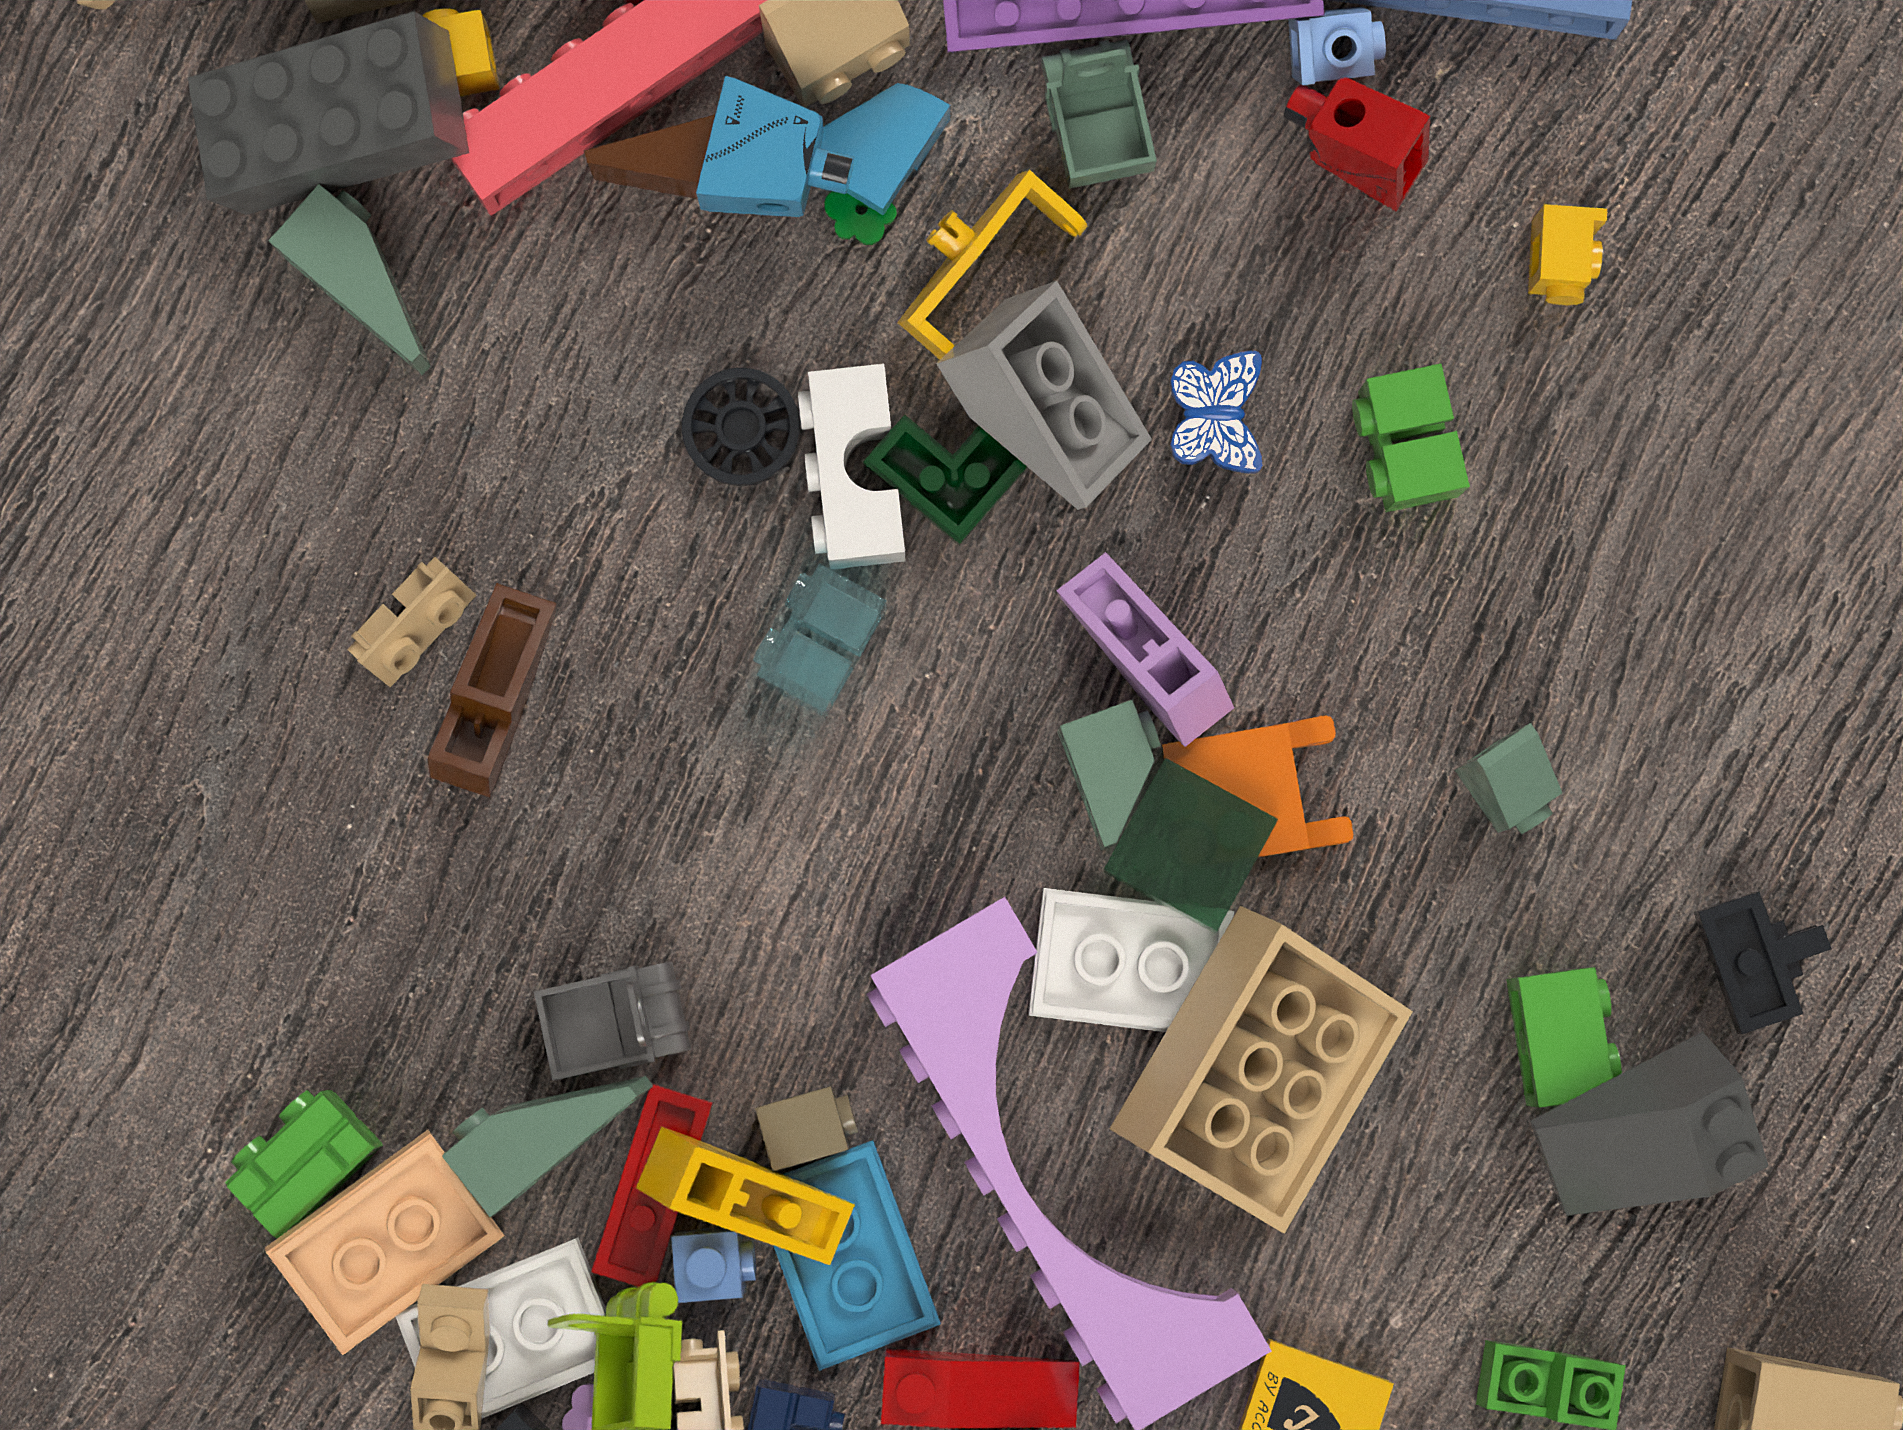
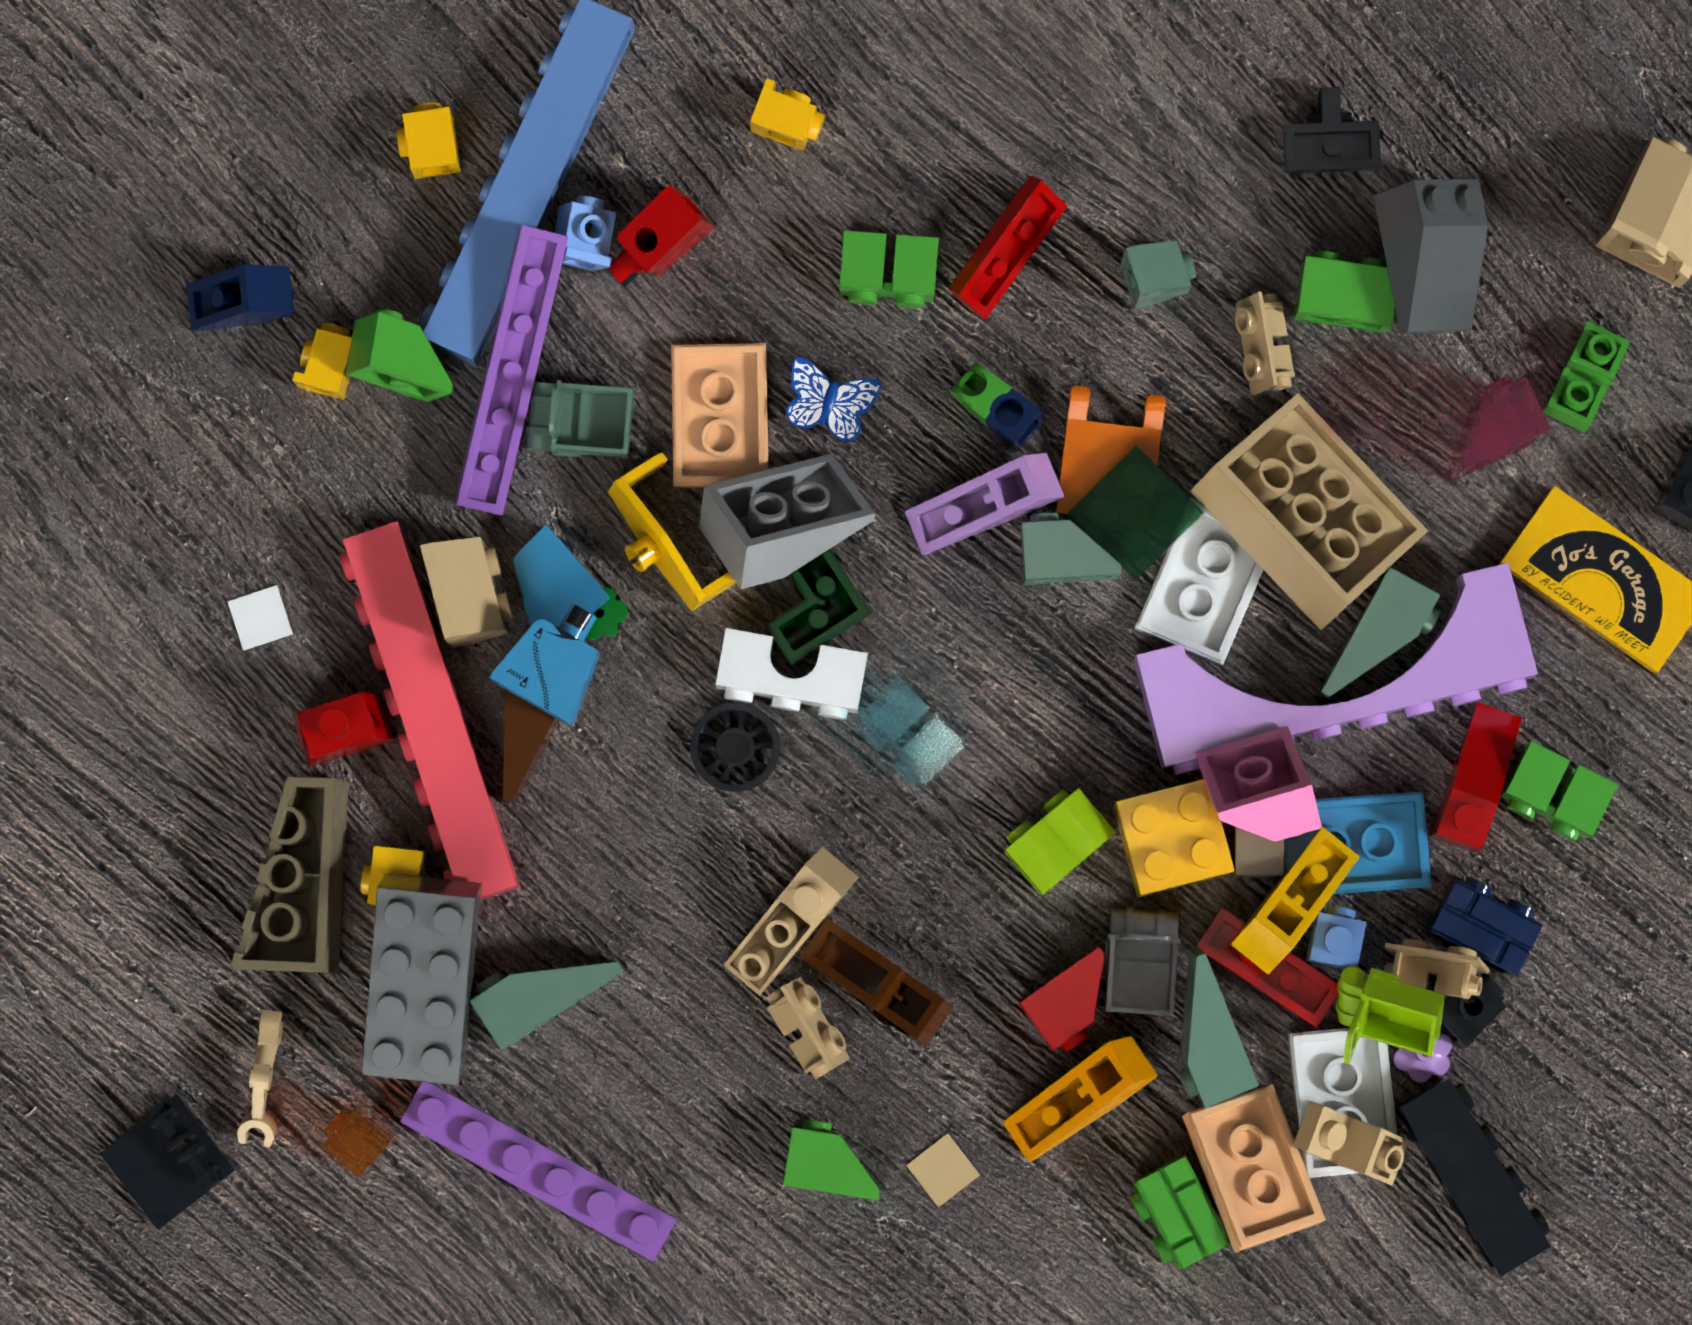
camera: 70 degrees left, 0 degrees up
(110, 104) = (357, 1141): none -> clear orange brick
(139, 343) = (538, 1170): none -> medium lavender plate
(241, 694) = (826, 1163): none -> bright green slope
(281, 845) = (943, 1170): none -> tan sticker
(417, 992) = (1080, 1097): none -> light orange slope
(531, 937) = (1066, 1003): none -> red slope
(542, 560) = (791, 920): none -> tan slope
(737, 867) = (1058, 840): none -> lime brick
(782, 1014) = (1172, 838): none -> yellow brick
(876, 1105) = (1261, 785): none -> bright pink slope
(1144, 1214) = (1389, 622): none -> sand green slope
(1161, 282) = (718, 412): none -> light nougat tile
(1275, 629) = (998, 406): none -> leg
(1436, 956) = (1259, 321): none -> tan hinge
(1449, 1286) = (1498, 426): none -> clear pink slope
(1485, 582) = (1007, 247): none -> red plate

